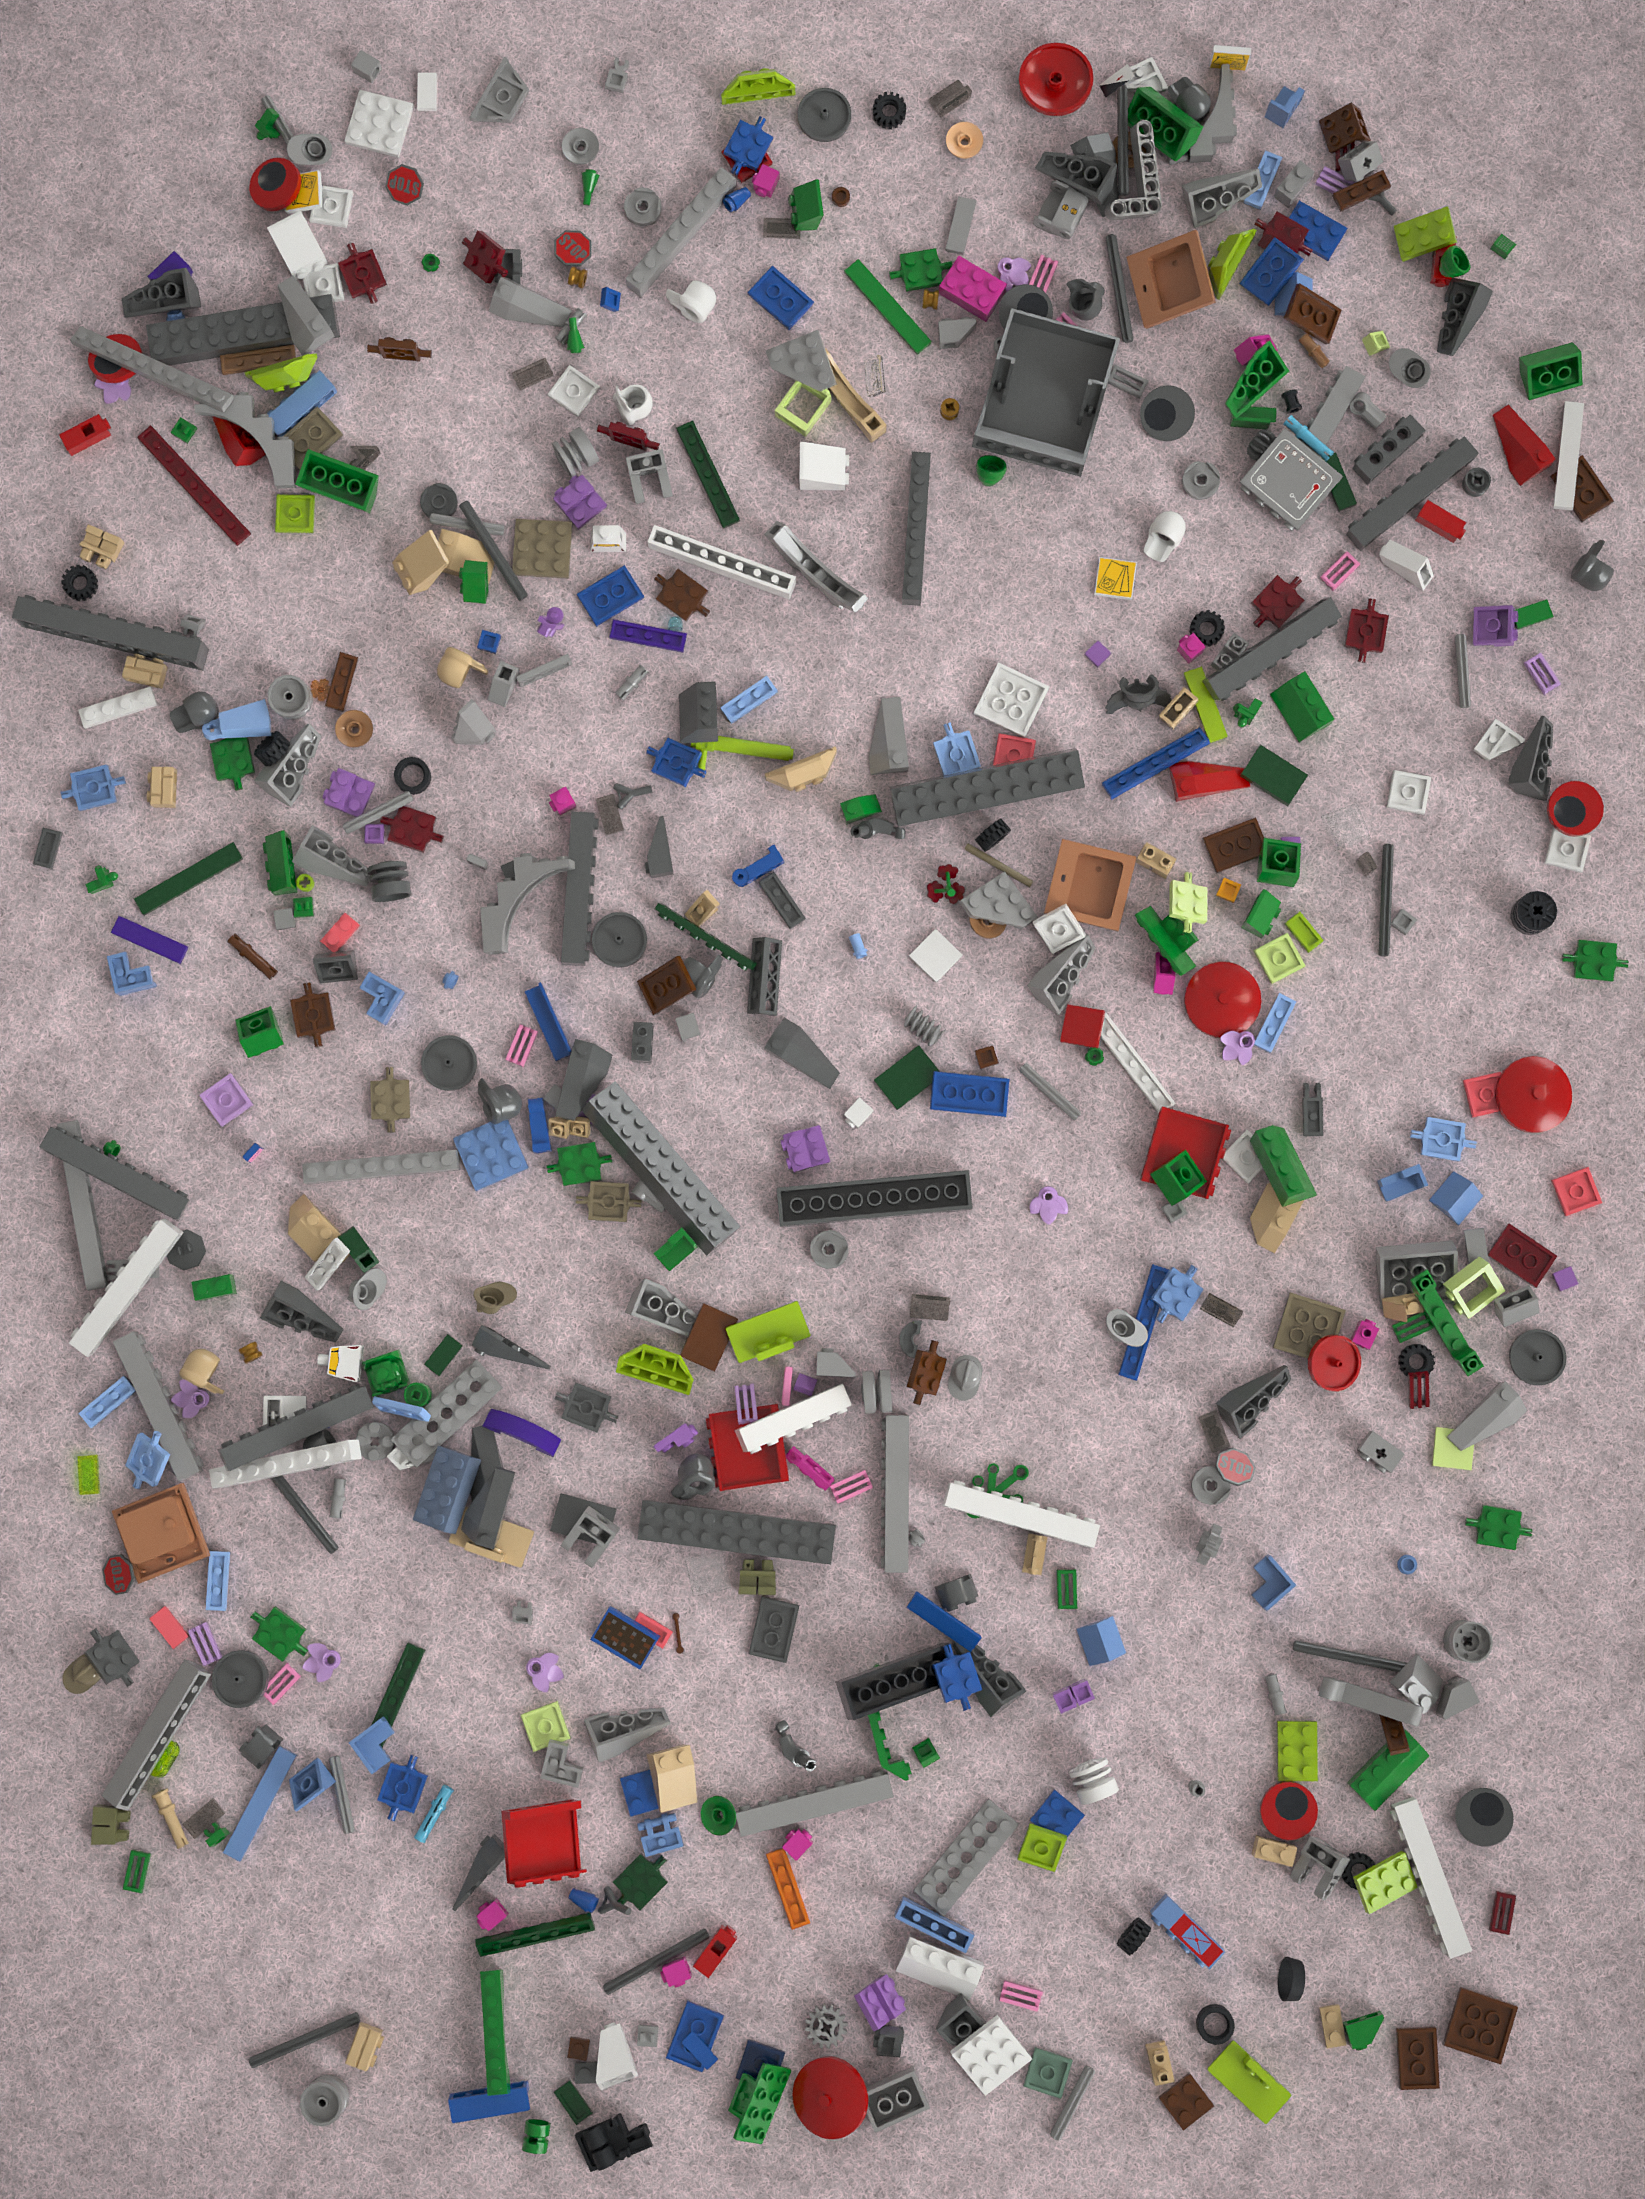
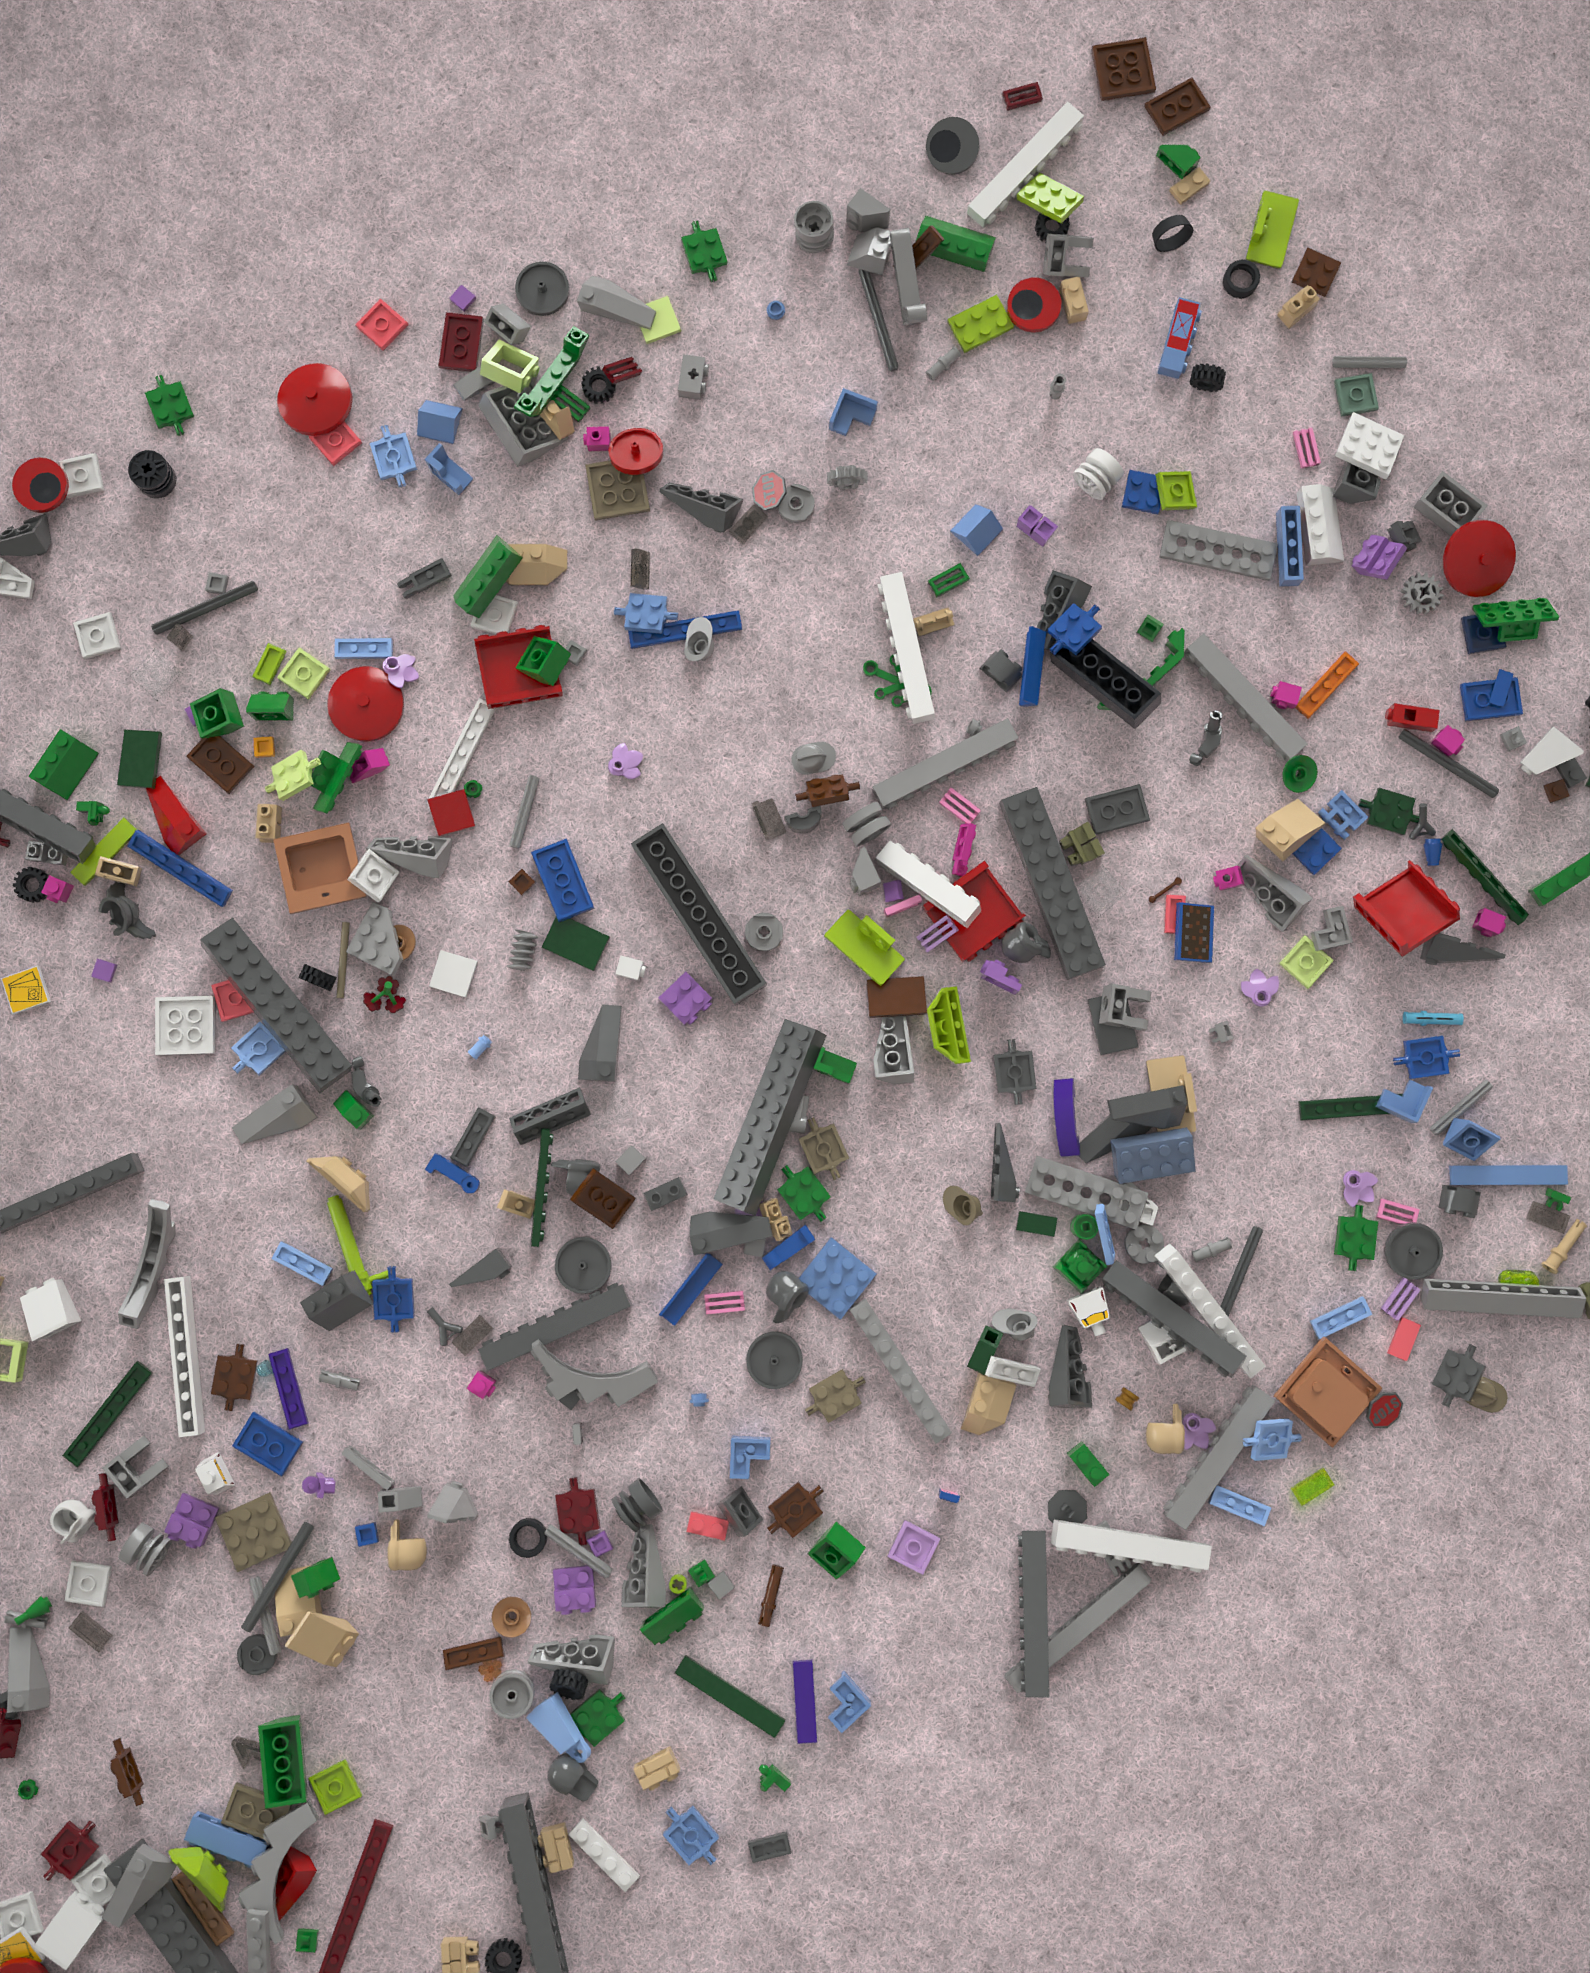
camera: 120 degrees left, 0 degrees up
(111, 1148) = (1013, 1629): green plate -> none
(657, 1703) = (1236, 878): none -> dark pink brick

